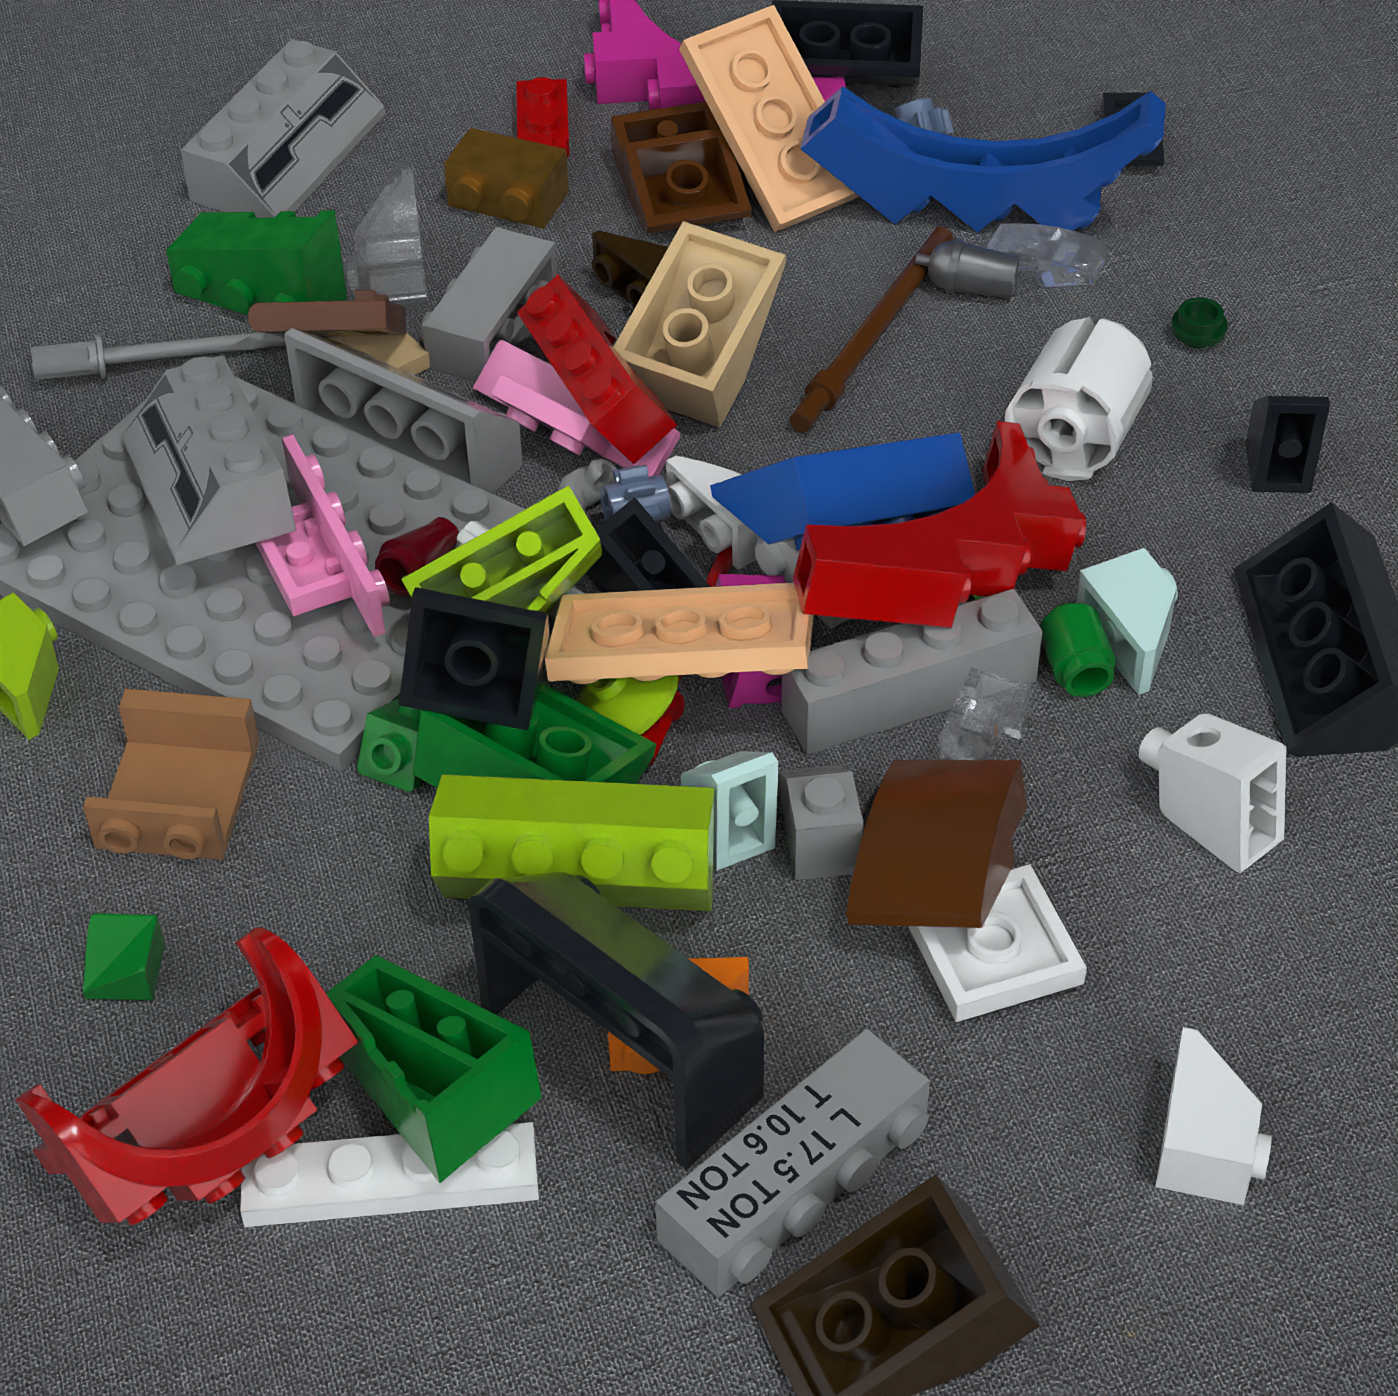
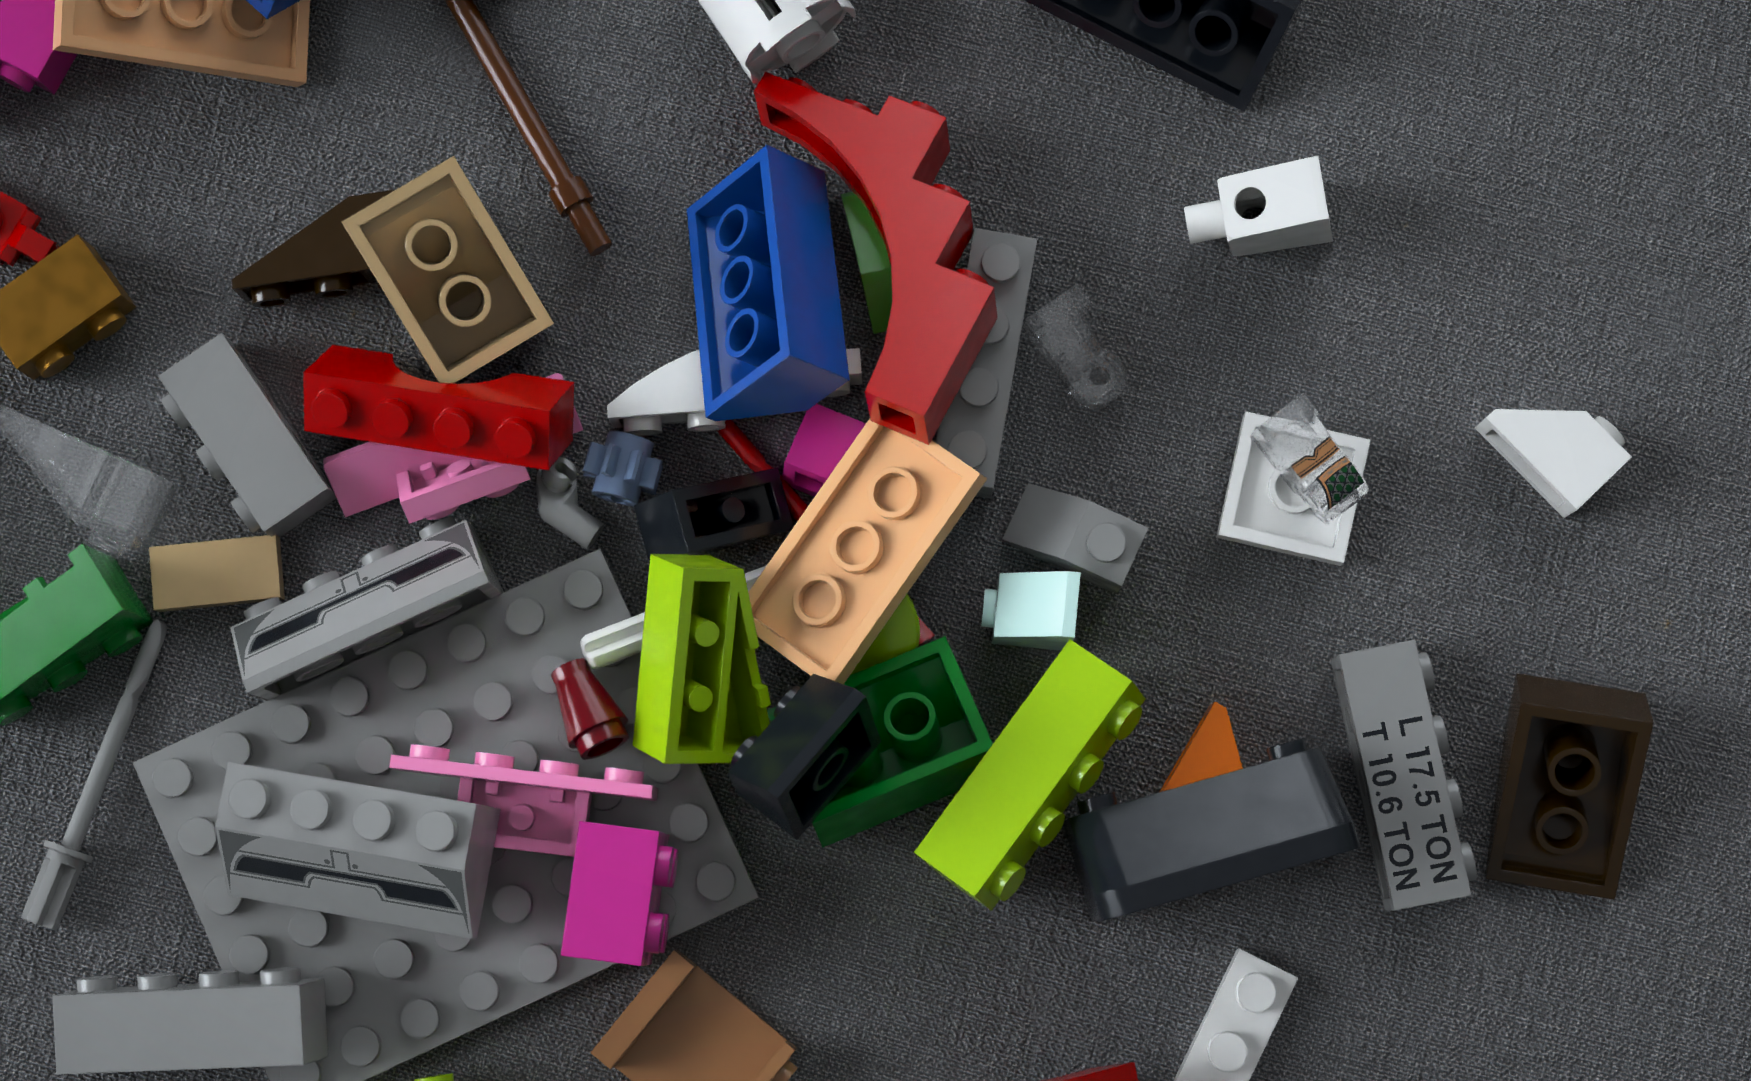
camera: 55 degrees left, 35 degrees up
(271, 615) = (618, 894): none -> dark pink brick
(366, 316) = (208, 621): reddish brown container -> none
(390, 745) = (770, 846): green bracket -> none
(435, 1062) = (1167, 1008): green wedge -> none
(677, 167) = (162, 133): reddish brown slope -> none
(937, 843) = (1193, 477): reddish brown slope -> none
(1027, 907) = (1310, 460): none -> clear leg
(1078, 649) = (1041, 205): green brick -> none
(1135, 609) = (1037, 132): light aqua slope -> none

